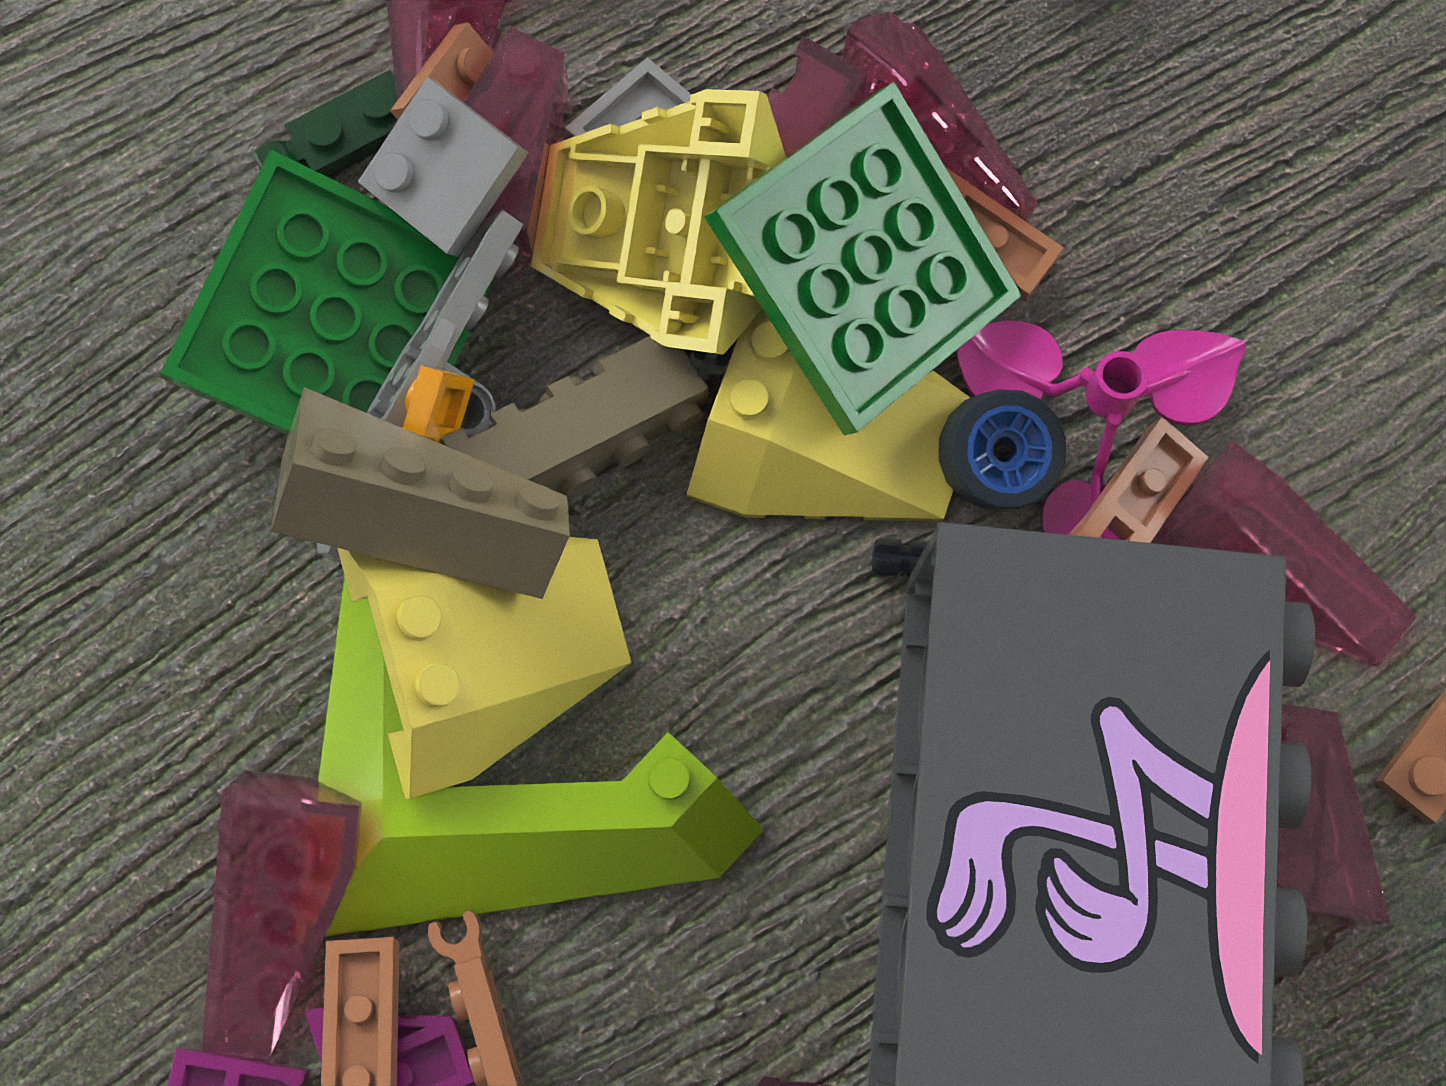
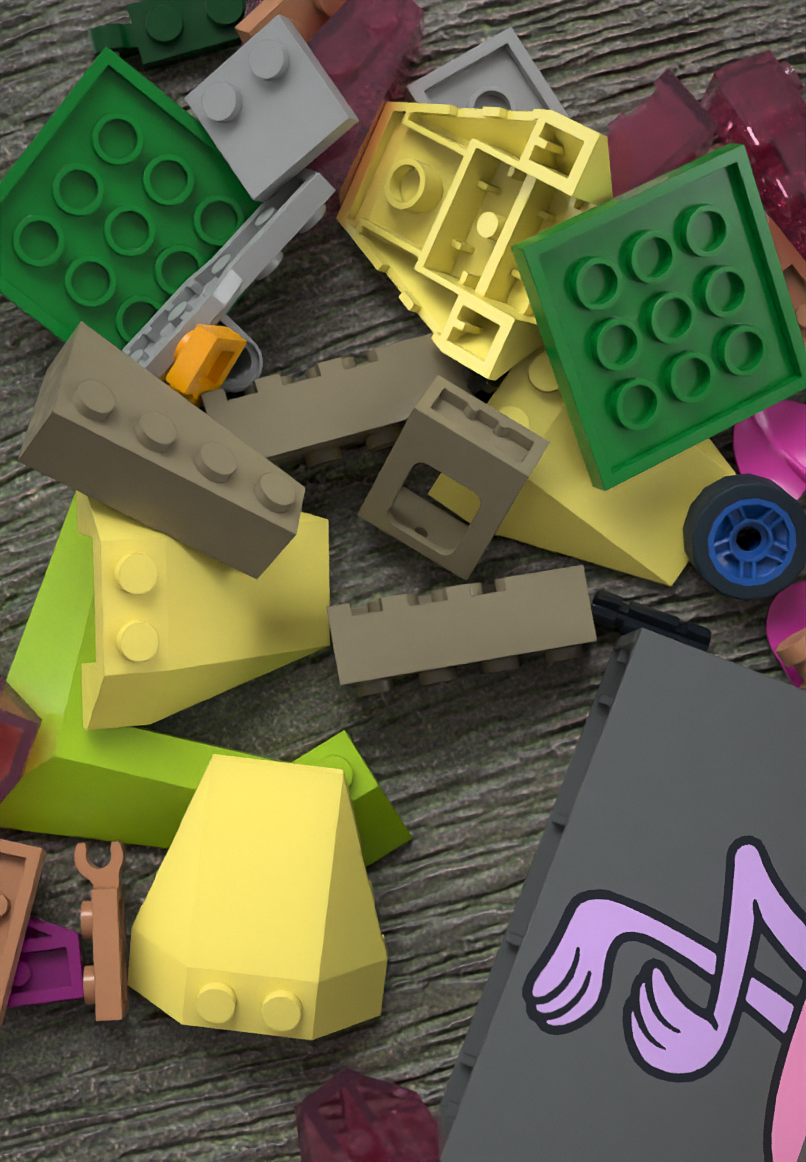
camera: 20 degrees right, 10 degrees up
(633, 935) = (263, 907): none -> light yellow wedge
(717, 422) = (471, 447): none -> dark tan window
(754, 608) = (462, 628): none -> dark tan wedge

